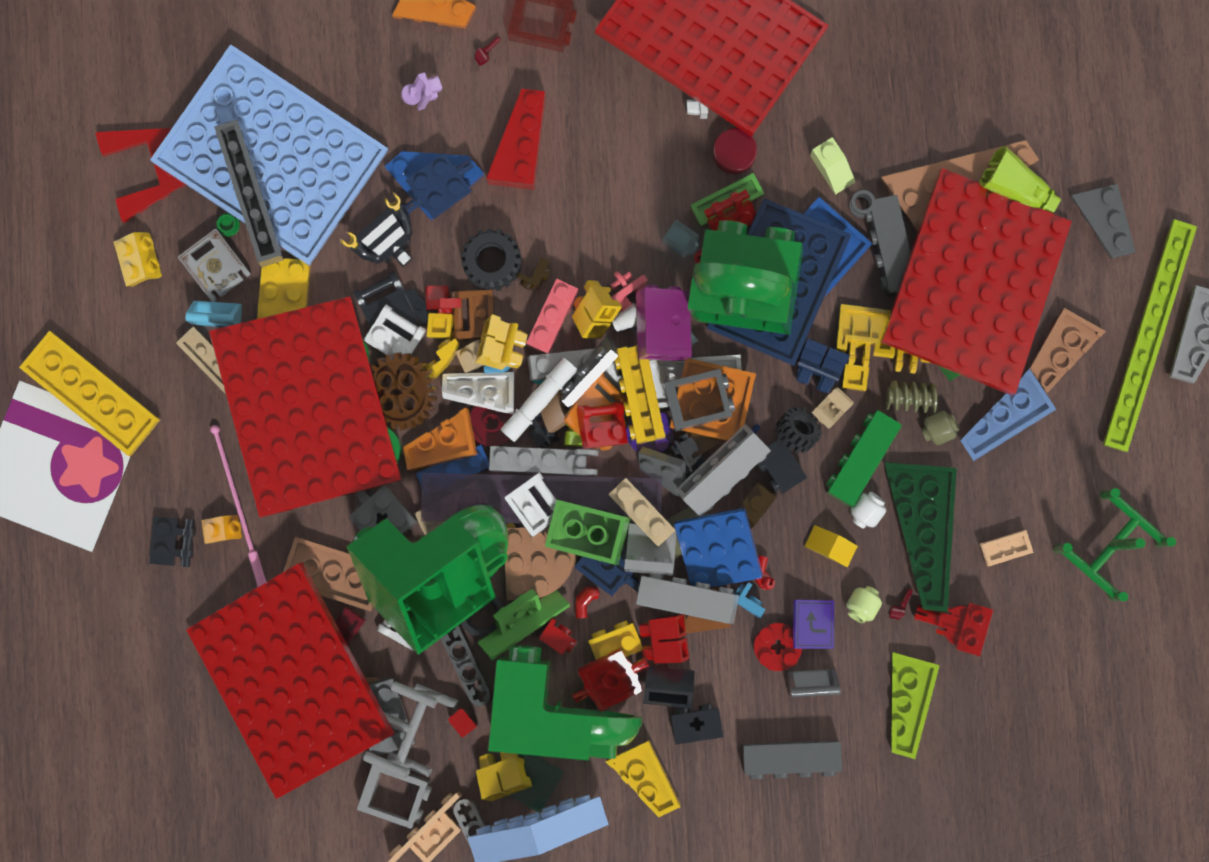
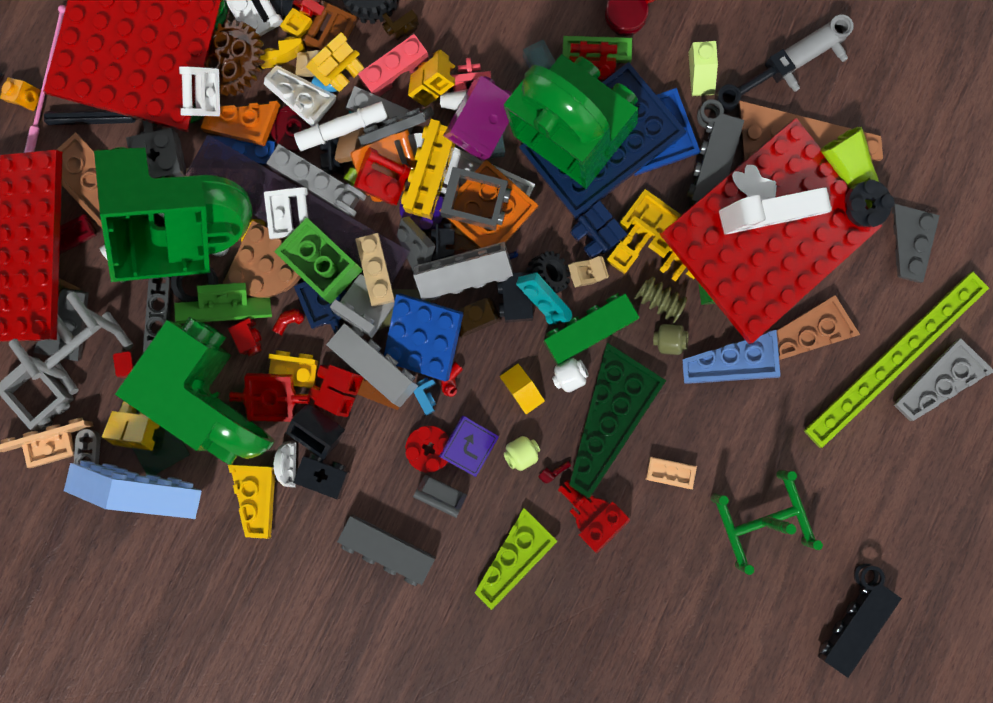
camera: 25 degrees right, 0 degrees up
(290, 520) = (85, 117): none -> black axle
(399, 435) = (206, 91): none -> white plate
(657, 732) = (285, 463): none -> white plate
(809, 454) = (544, 298): none -> teal plate
(908, 112) = (786, 61): none -> light grey piece
(945, 253) = (753, 184): none -> white sticker
(971, 265) = (757, 213): none -> white beam
(1062, 210) = (881, 203): none -> black plate

